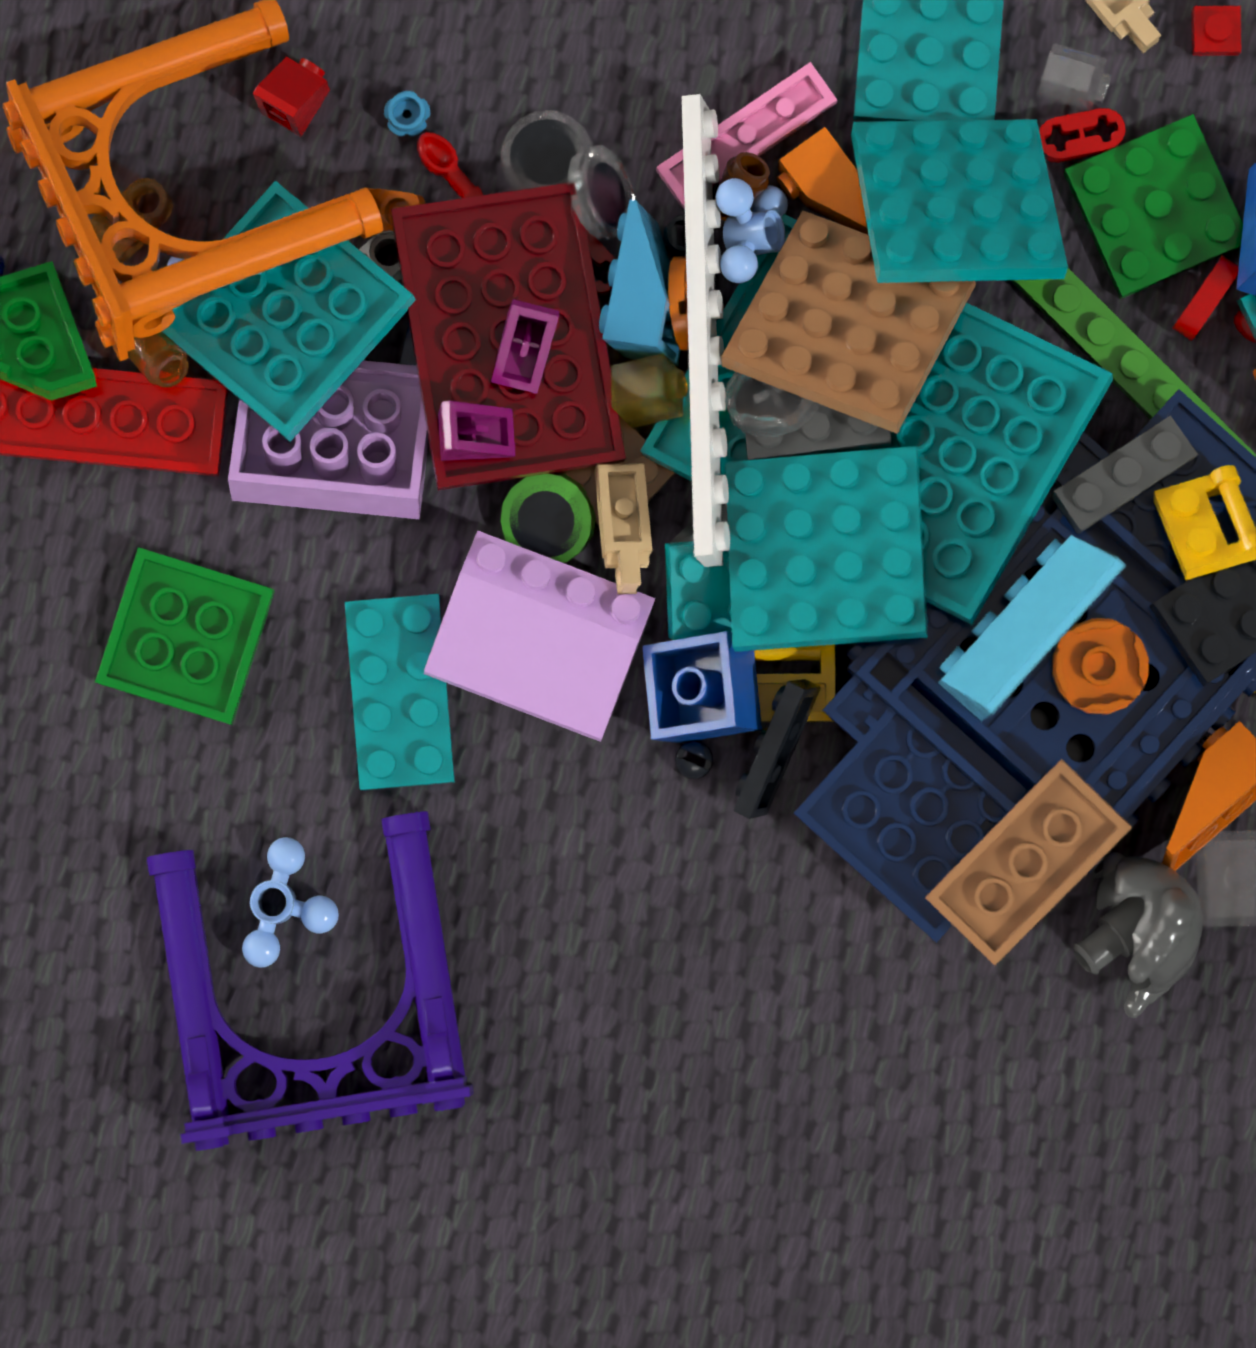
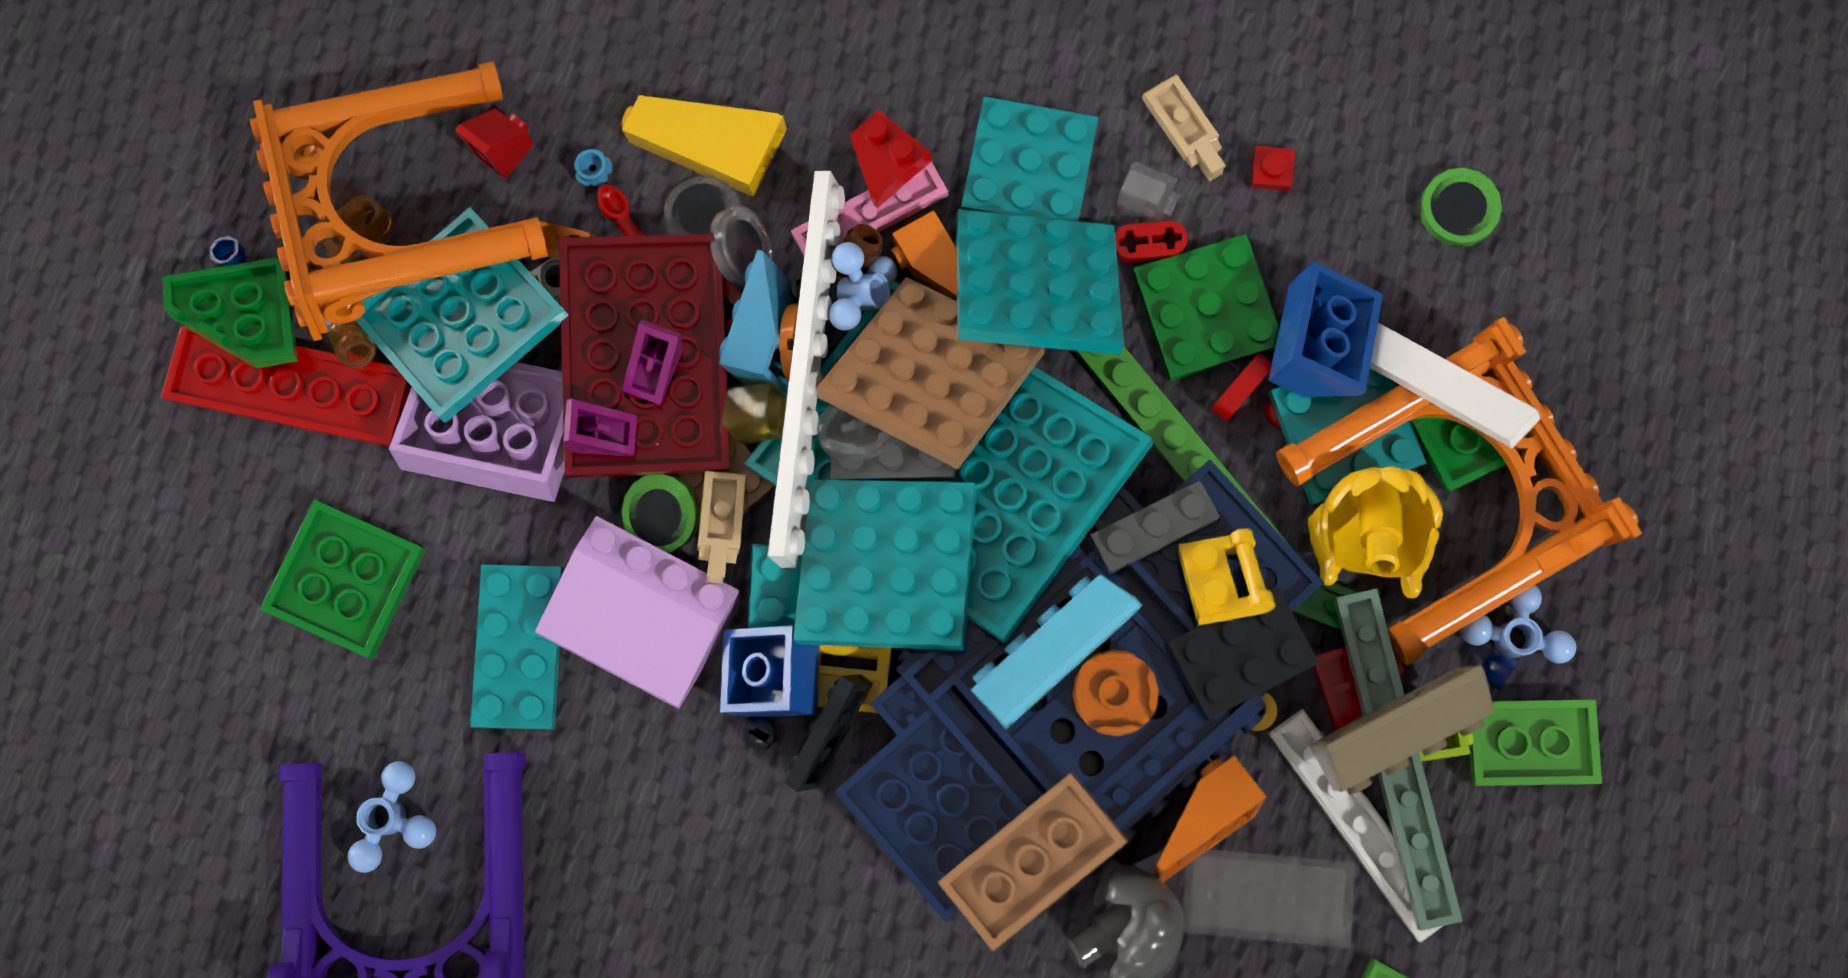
camera: 15 degrees right, 5 degrees down
(541, 65) = (707, 138): none -> yellow slope
(759, 64) = (887, 156): none -> red wing

